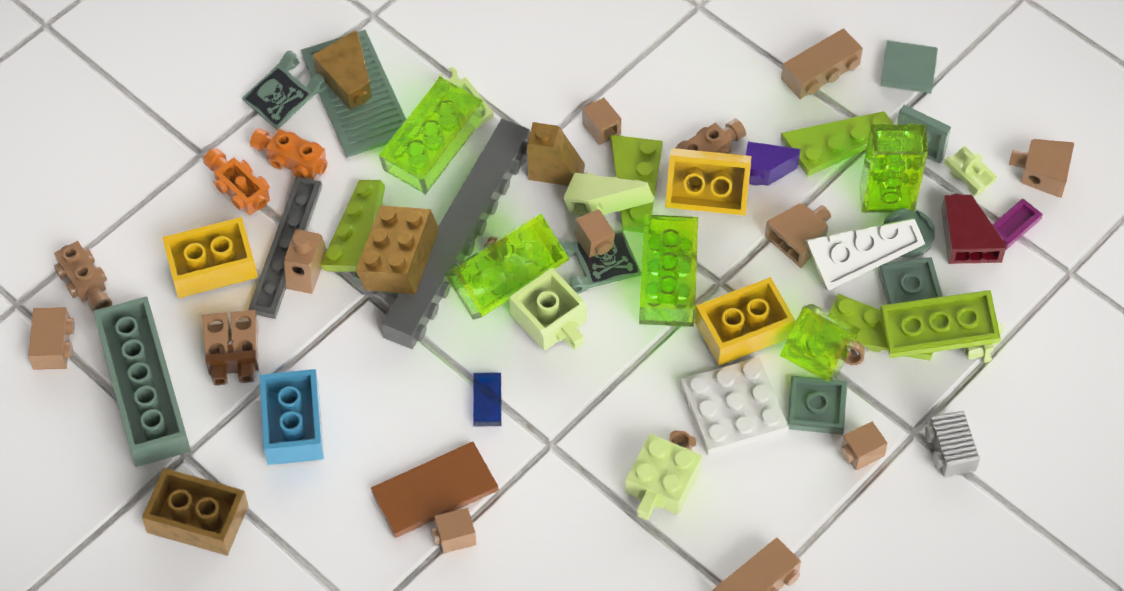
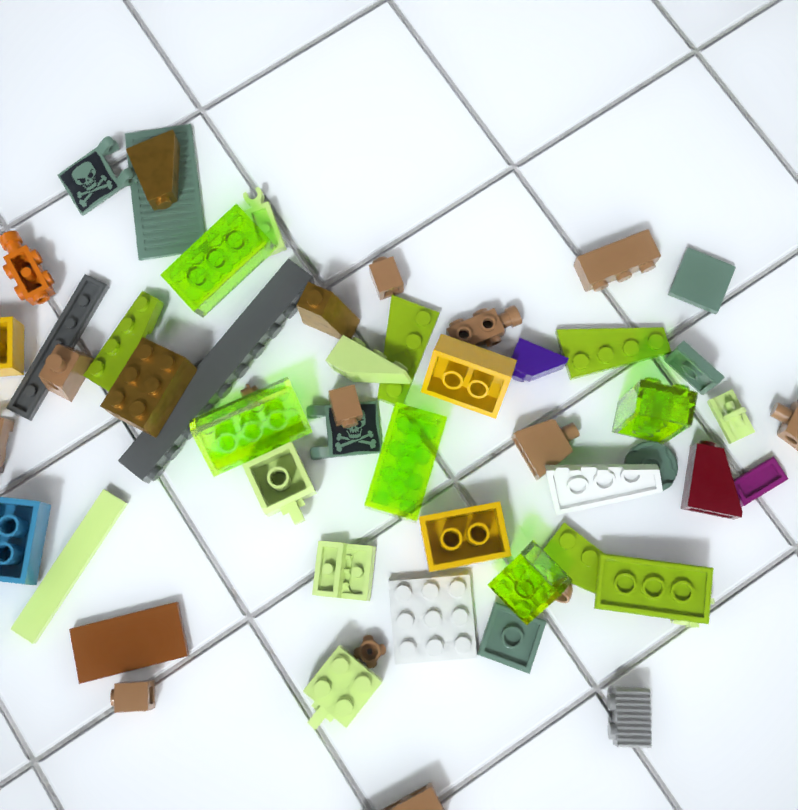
camera: 15 degrees right, 20 degrees up
(291, 152) = (87, 247): orange brick -> none
(353, 436) = (68, 566): none -> yellowish green tile
(487, 399) = (202, 556): clear blue tile -> none
(633, 381) = (344, 570): none -> yellowish green slope
(863, 445) = (542, 699): medium nougat brick -> none
(909, 280) = (637, 527): sand green tile -> none

